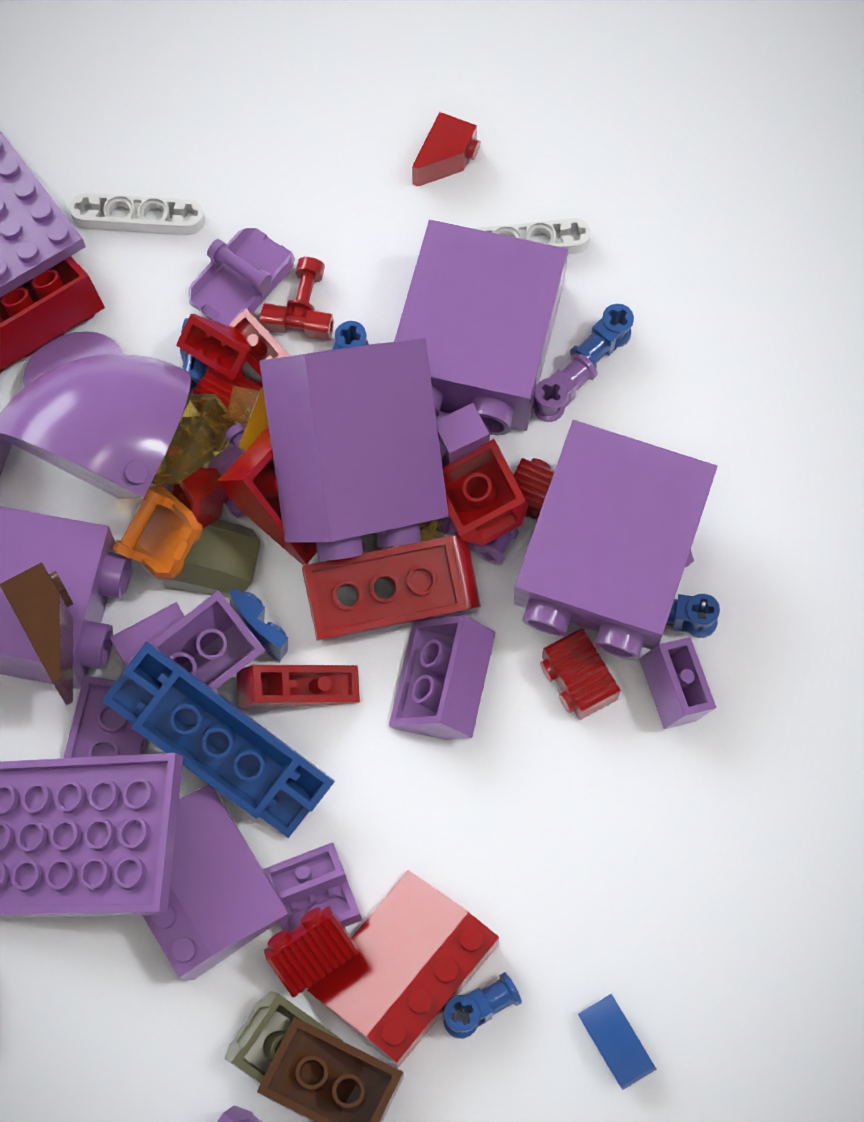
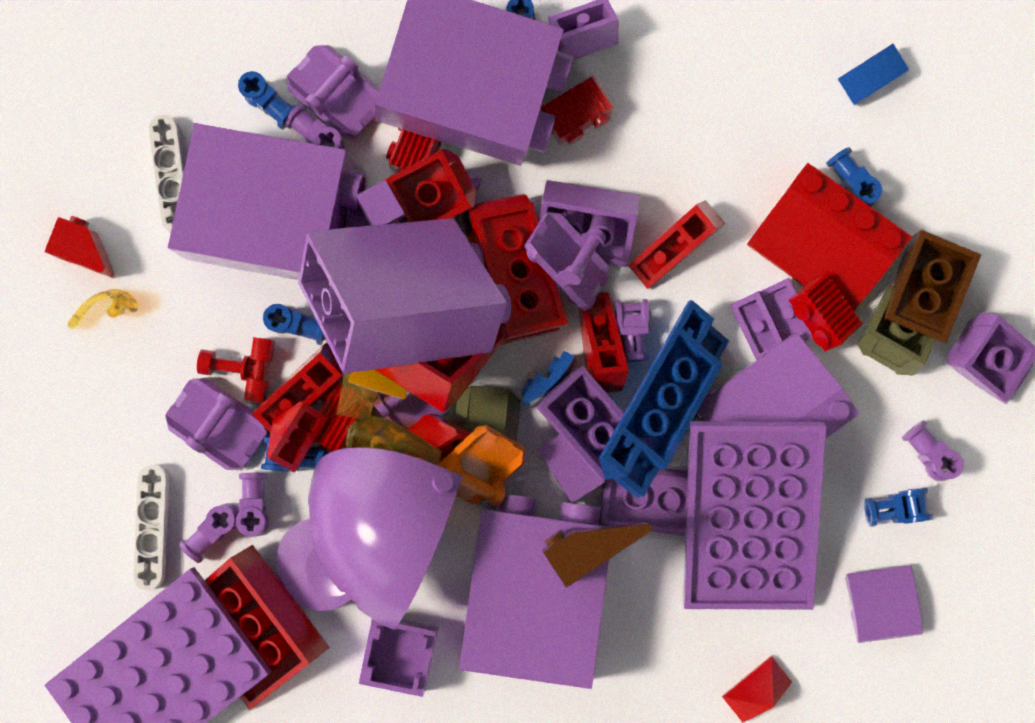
camera: 90 degrees left, 15 degrees up
(62, 1031) = (903, 507): none -> blue connector
(128, 271) = (210, 531): none -> medium lavender connector
(128, 1076) = (934, 453): none -> medium lavender connector
(146, 309) = (252, 502): none -> medium lavender connector
(312, 724) = (633, 327): none -> medium lavender connector
(383, 188) = (120, 301): none -> clear yellow piece
(394, 646) = (569, 258): none -> medium lavender shield
(412, 783) = (676, 243): none -> red slope
(617, 400) = (334, 90): none -> medium lavender shield

